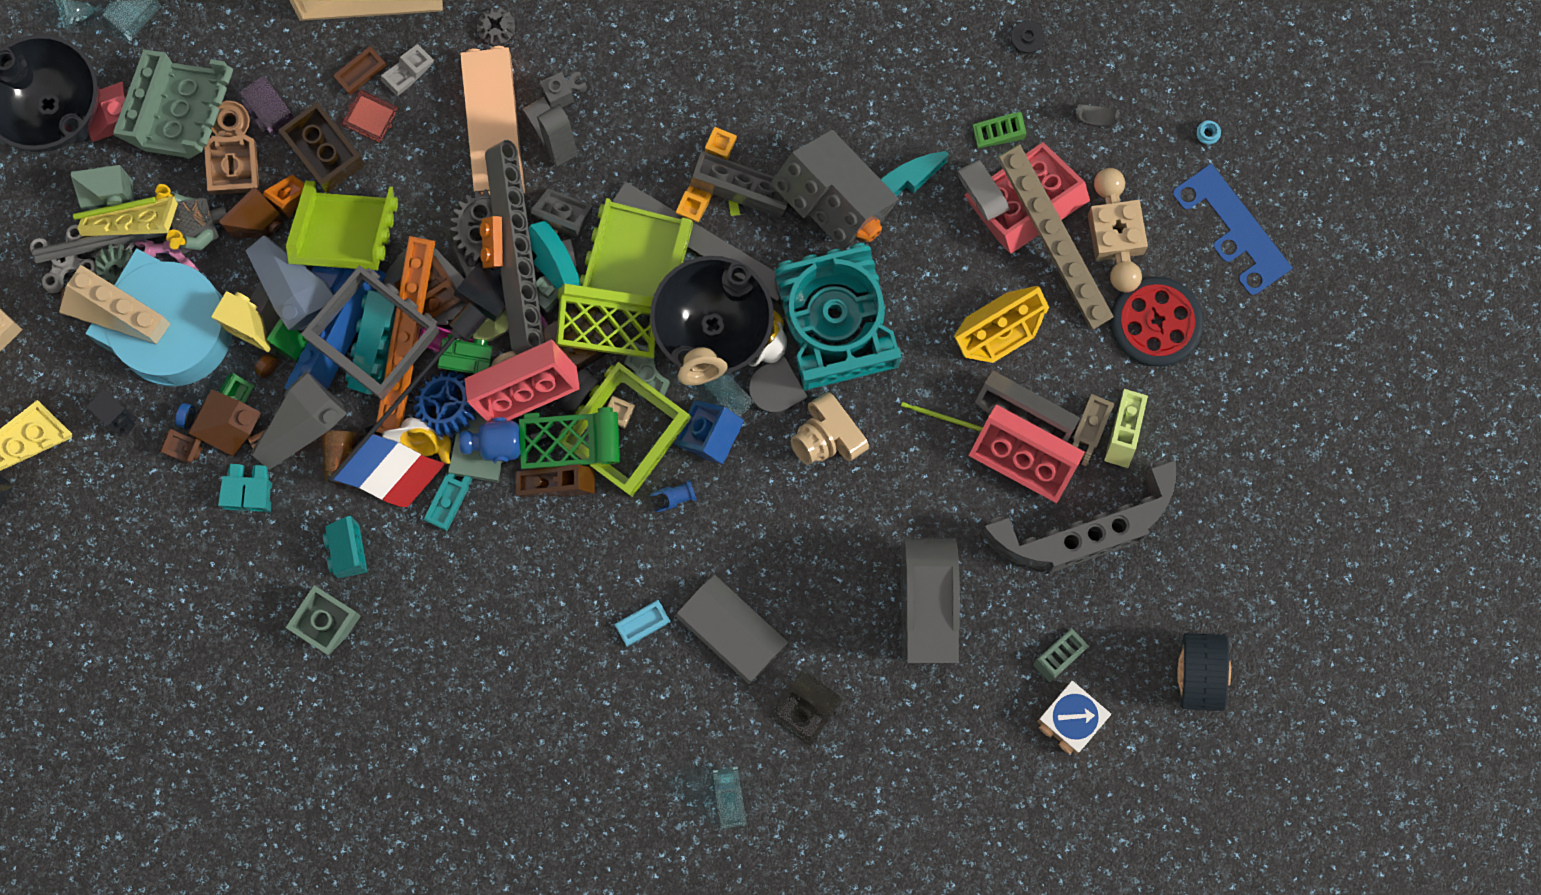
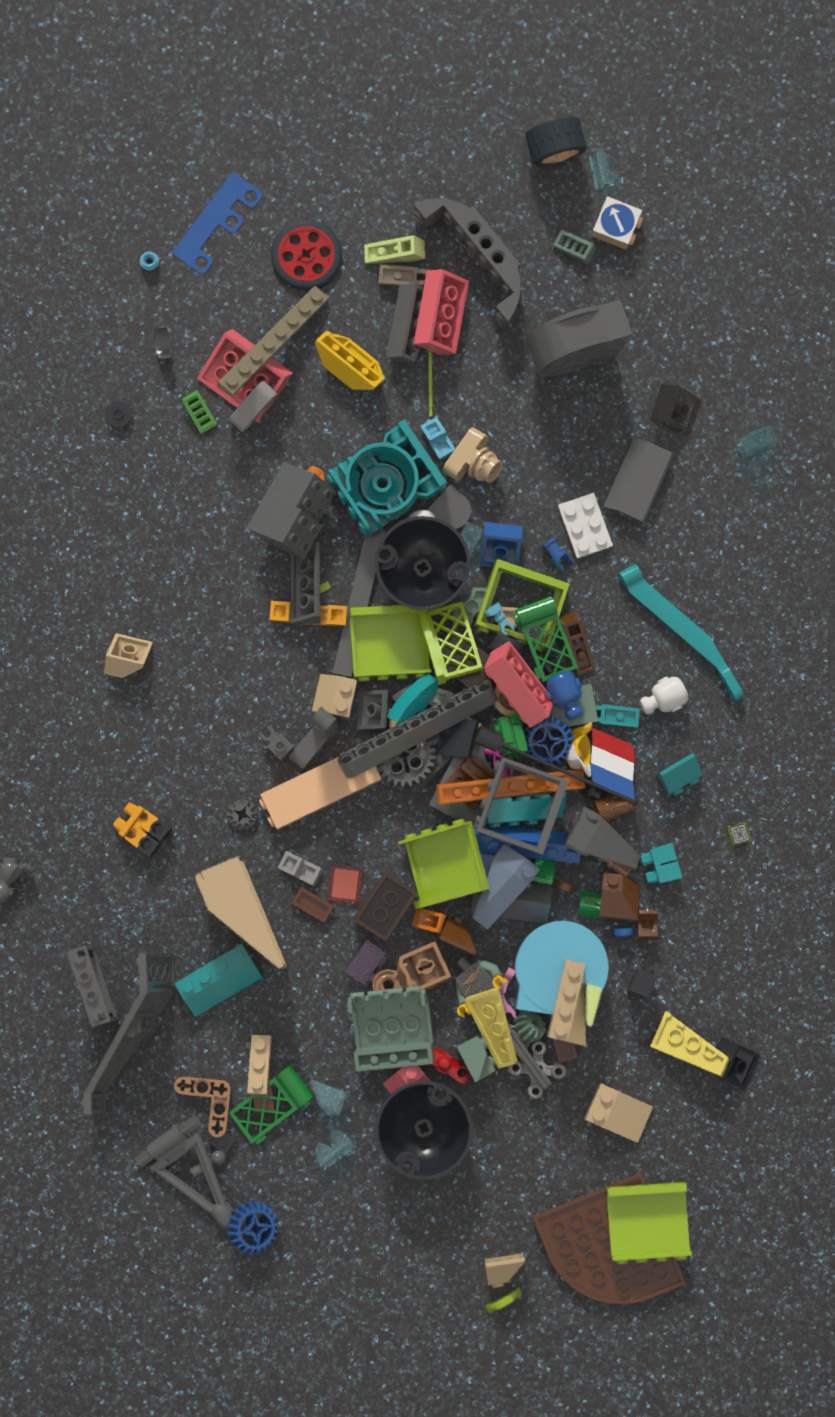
camera: 110 degrees left, 5 degrees up
(111, 337) = (592, 996): none -> yellowish green slope
(112, 153) = (449, 1065): none -> red piece
(114, 208) = (487, 1041): lime axle -> none
(242, 320) = (544, 905): light yellow slope -> none
(248, 598) = (739, 834): none -> tile
(323, 620) = (738, 770): sand green slope -> none
(447, 568) = (667, 695): none -> white piece
(492, 248) = (419, 746): orange plate -> none
(531, 617) = (680, 624): none -> teal piece
(594, 175) = (335, 695): none -> tan slope
(625, 388) = (495, 610): none -> medium azure piece
(642, 623) = (655, 545): medium azure tile -> none
(698, 544) = (585, 526): none -> white plate
(701, 367) = (465, 555): tan hat -> none
(870, 402) = (438, 439): none -> medium azure slope
(915, 172) = (255, 462): teal slope -> none
(1108, 242) = (245, 313): tan brick -> none
(1141, 722) = (602, 176): none -> clear light blue tile

